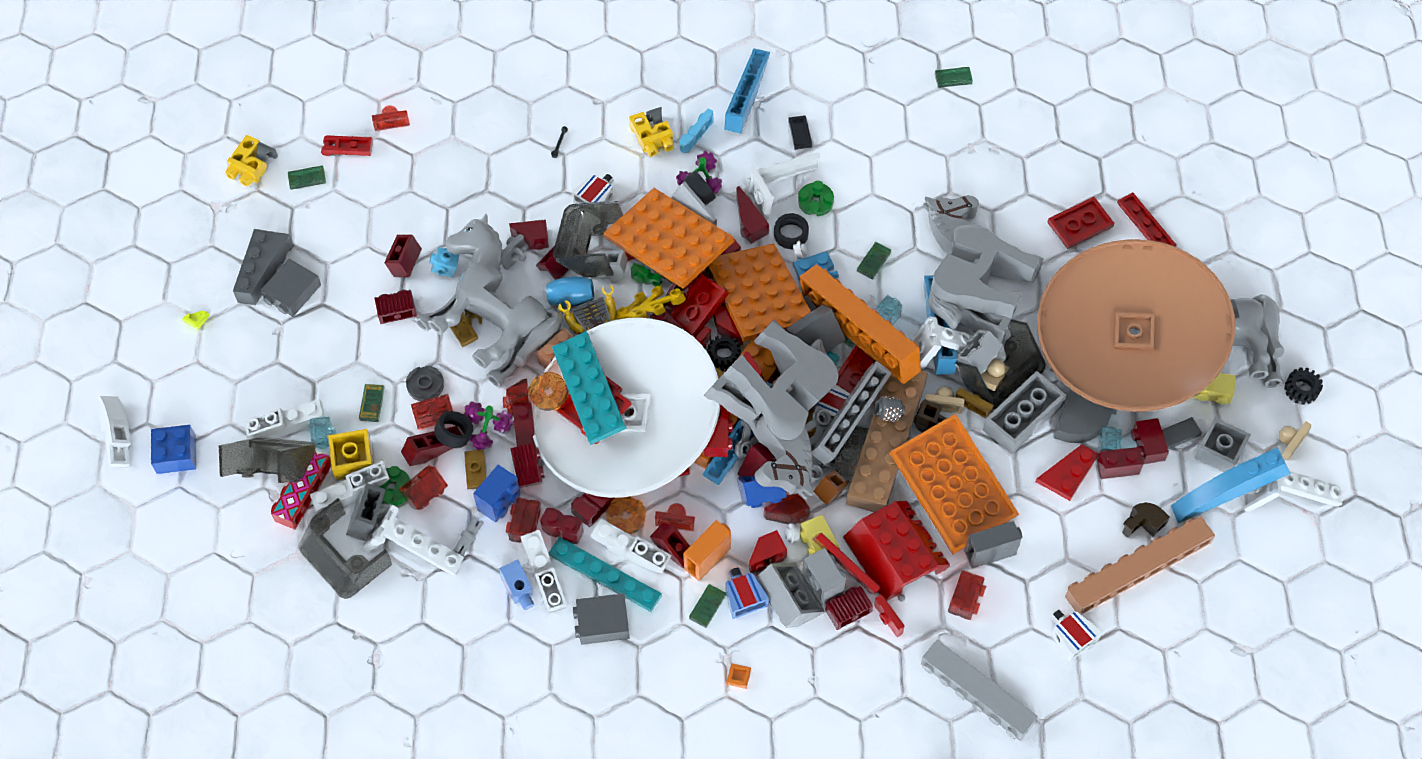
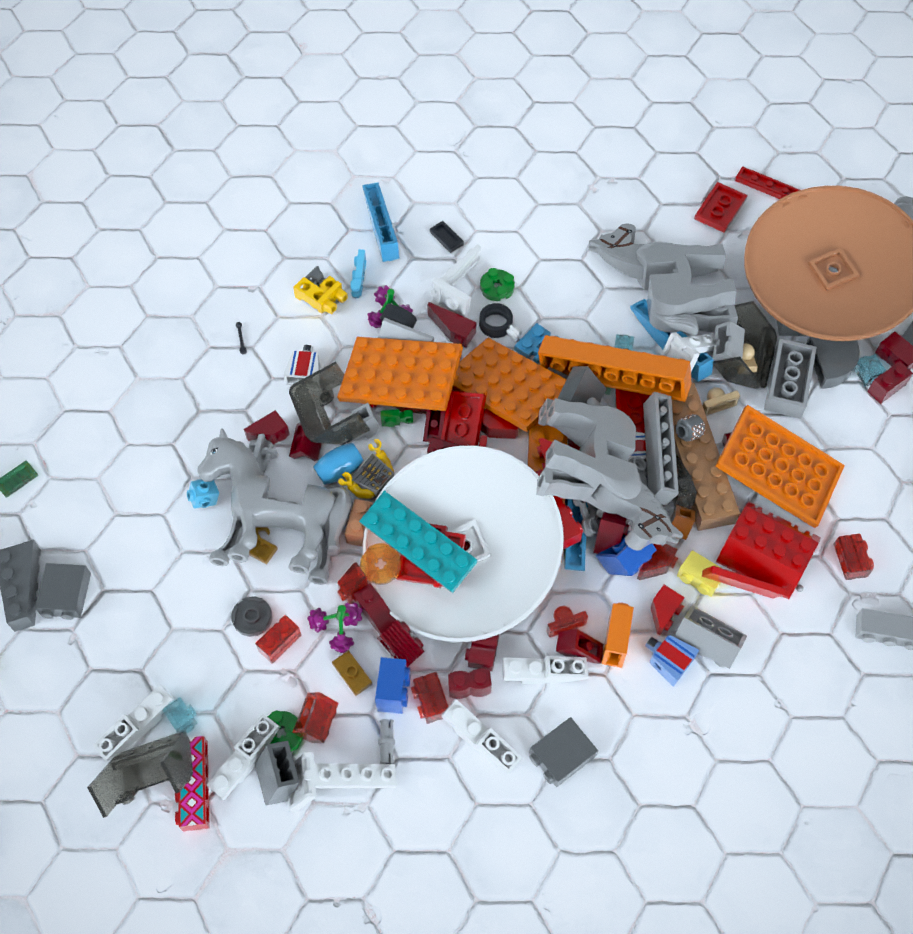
camera: 30 degrees left, 0 degrees up
(173, 449) = (33, 815): blue brick -> none
(341, 575) = (267, 844): clear smoke windscreen -> none
(347, 145) = (39, 431): red plate -> none
(350, 452) = (223, 722): yellow brick -> none
(371, 402) = (211, 661): clear green tile -> none
(390, 118) = (68, 387): clear red tile -> none
(395, 306) = (179, 557): dark red brick -> none
(403, 255) = (159, 506): dark red brick -> none
(425, 447) = (296, 672): dark red slope -> none
(448, 438) = (306, 656): black tyre -> none
(514, 578) = (458, 760): medium blue torso -> none
(605, 574) = (536, 707): teal plate -> none
(630, 505) = (521, 630): clear orange plate -> none
(650, 304) = (417, 441): yellow plant -> none
(707, 606) = (645, 686): clear green tile -> none
(720, 343) = (510, 441): black tyre -> none
(738, 676) = (716, 736): orange tile -> none
(792, 533) = (674, 580): white plate -> none
(823, 576) = (732, 604): light grey brick -> none
(848, 607) = (767, 621): dark red brick -> none
(874, 260) = (579, 313): clear green tile -> none
(889, 616) = (805, 609): red plate -> none
(928, 416) = (721, 419): dark brown brick -> none
(953, 77) = (540, 139): clear green tile -> none
(975, 403) = (746, 390): pearl gold plate -> none
(993, 544) = (847, 501): dark grey brick -> none
(1069, 472) = (855, 410): red wing -> none

